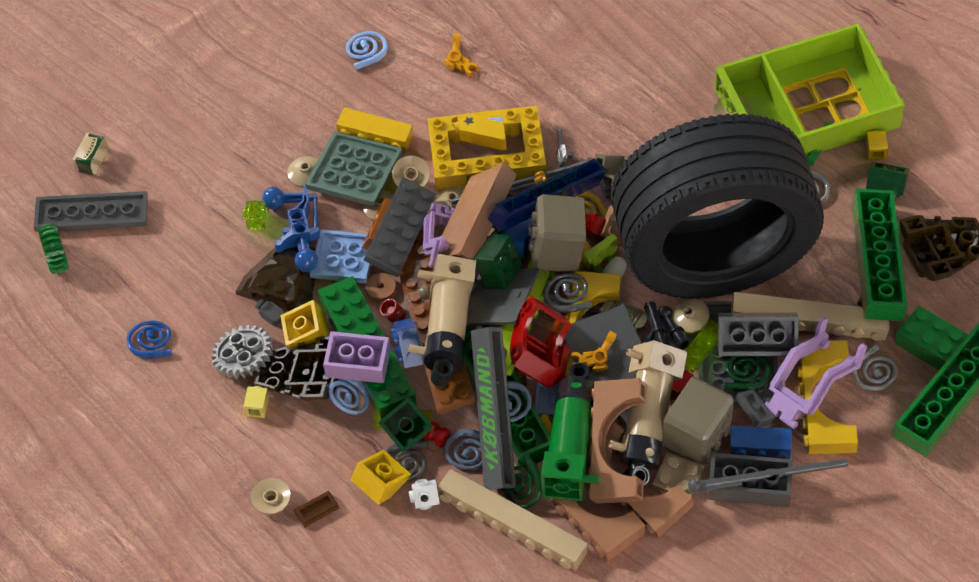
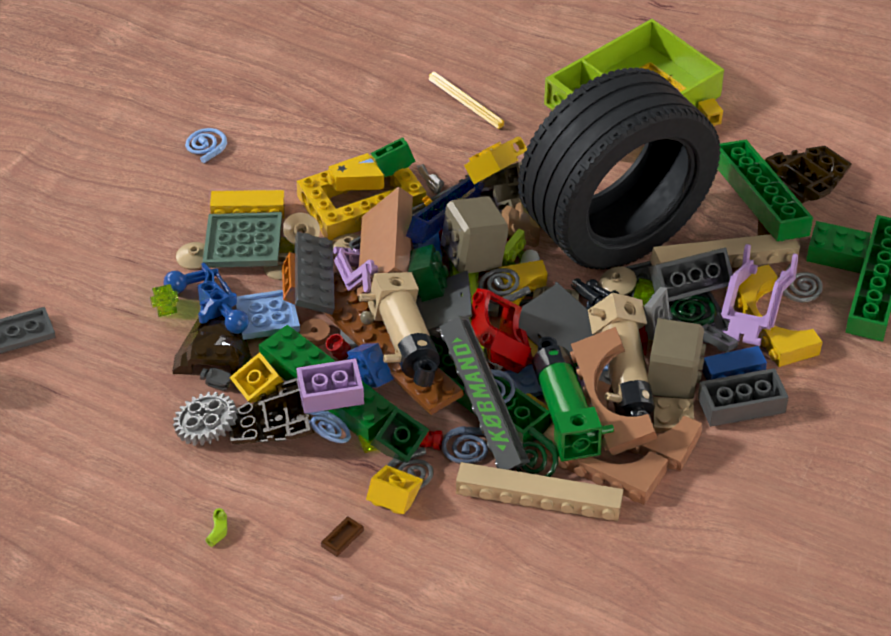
camera: 25 degrees left, 10 degrees down
(150, 337) = (109, 443): blue piece -> none
(211, 468) = (220, 527): none -> lime arm
(256, 402) = (239, 458): light yellow brick -> none
(268, 489) = (292, 529): tan dish -> none
(424, 494) = (445, 491): white brick -> none
(456, 59) = (297, 133): light orange piece -> none
(523, 121) = (393, 157): none -> green brick
(598, 357) = (556, 330): light orange piece -> none
(617, 149) = (494, 159): none -> yellow brick
(638, 64) = (466, 100): none -> axle
(704, 364) = (656, 308): none -> light grey plate
(735, 481) = (736, 397): dark grey bar -> none
(887, 177) = (735, 132): dark green slope -> none

